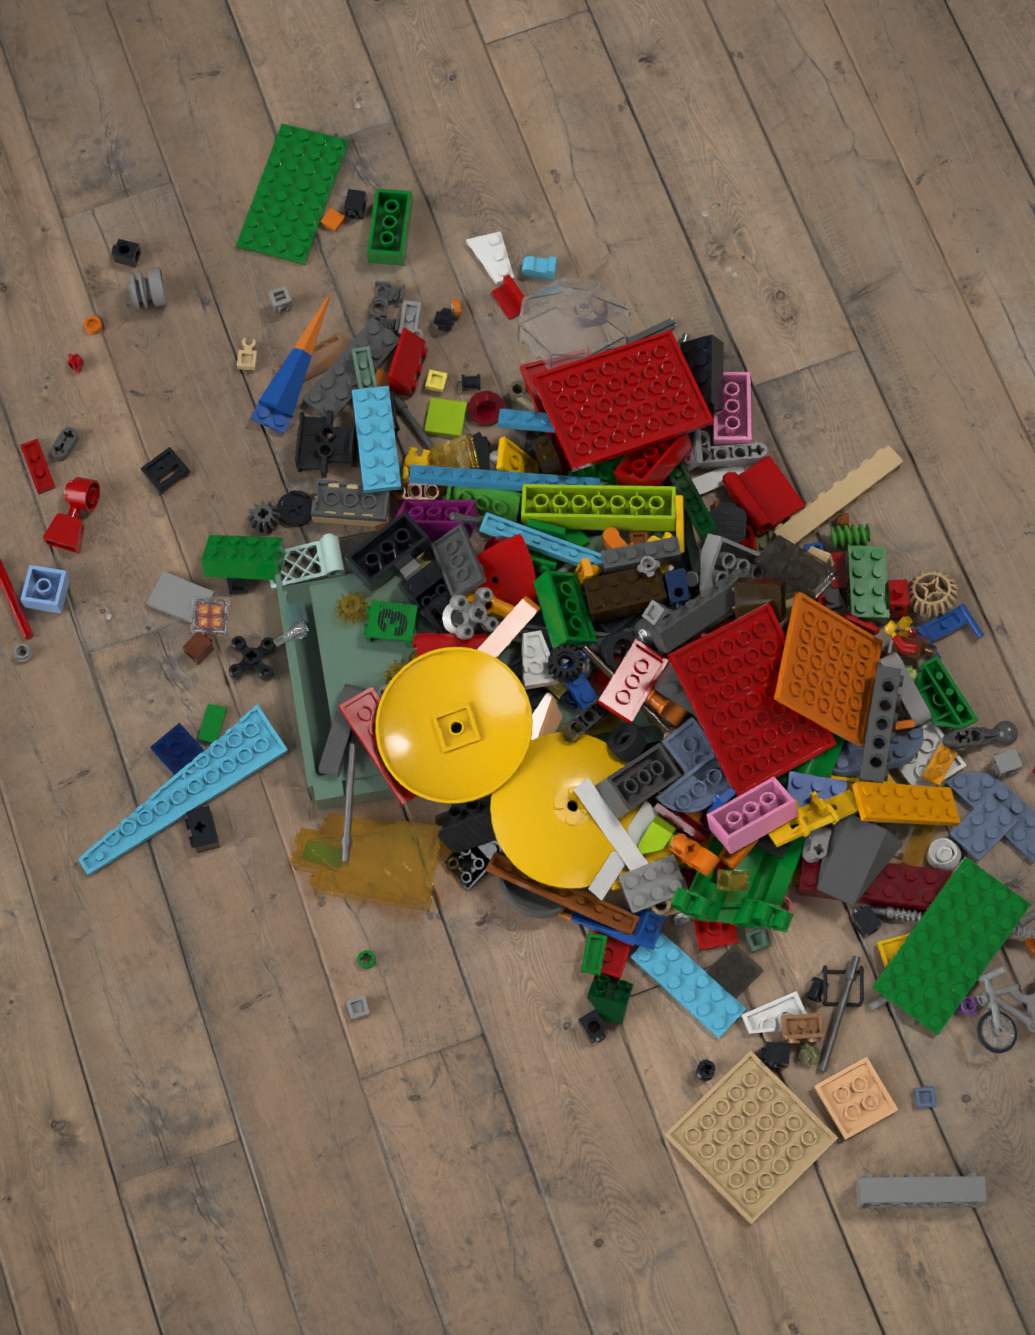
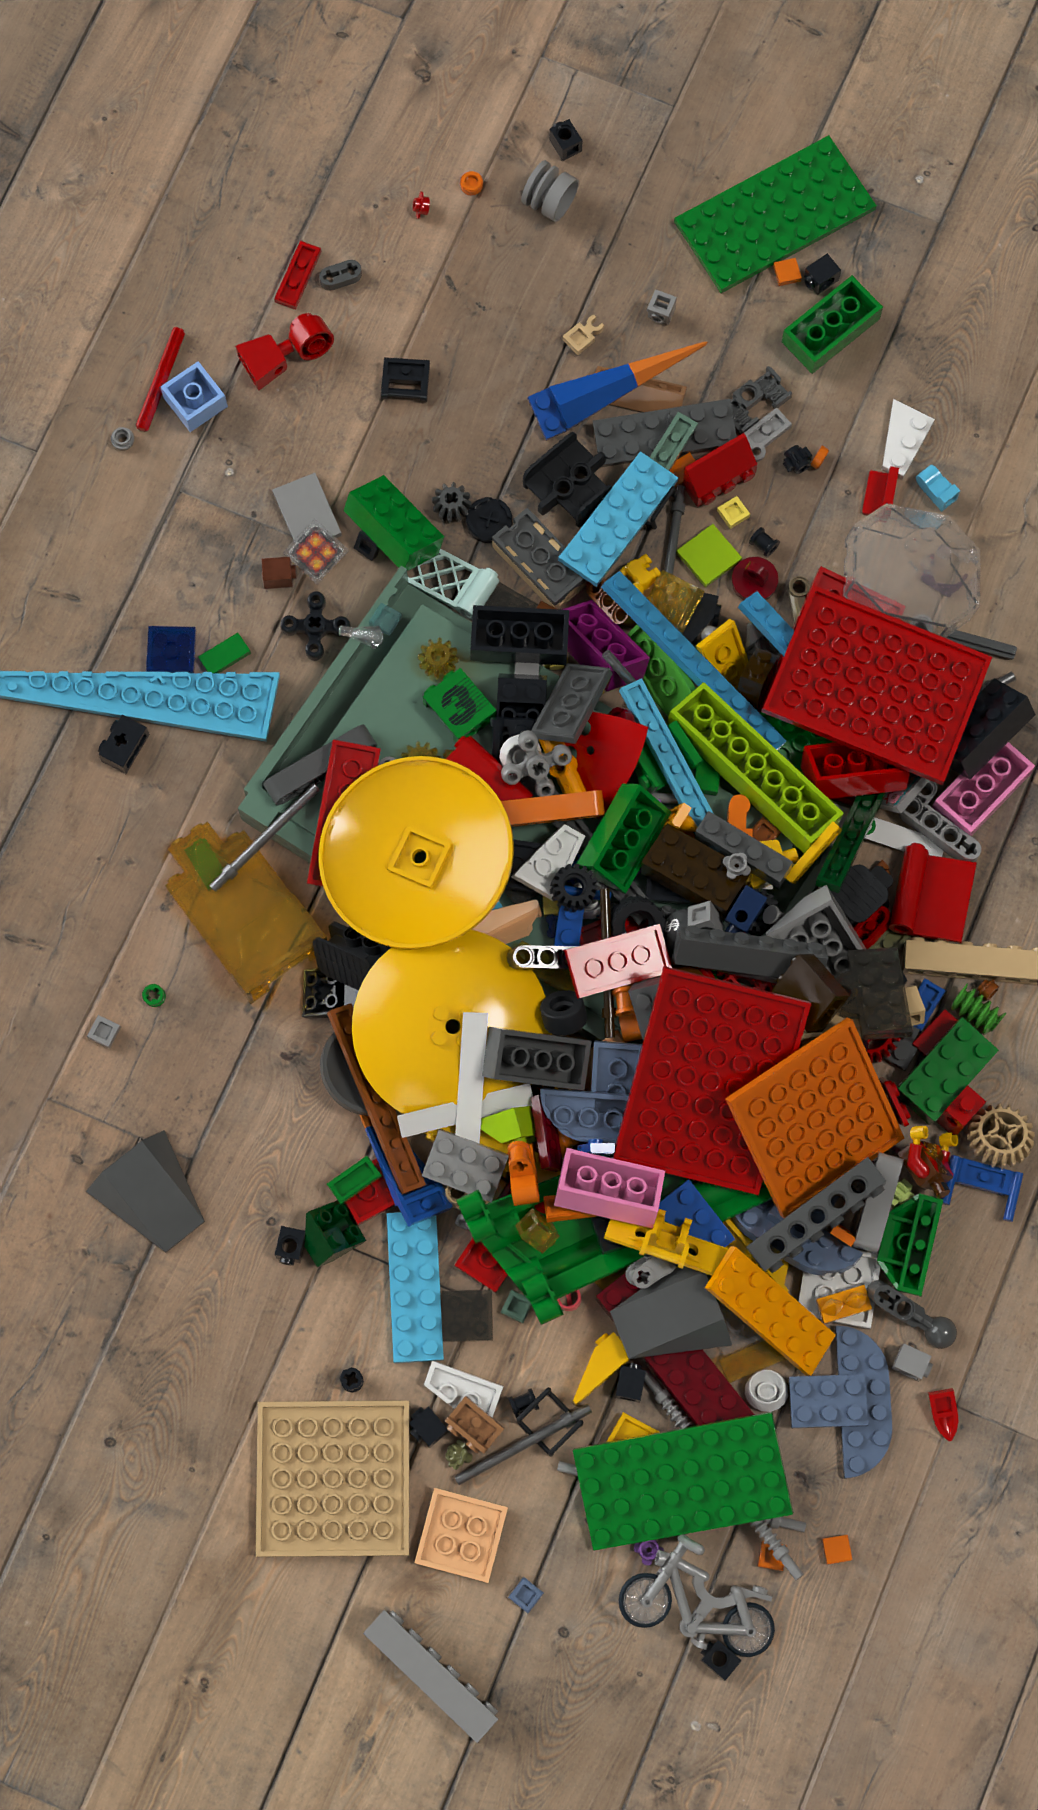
camera: 40 degrees right, 5 degrees up
(479, 1076) = (150, 1192): none -> dark grey wedge
(839, 924) = (604, 1362): none -> yellow slope

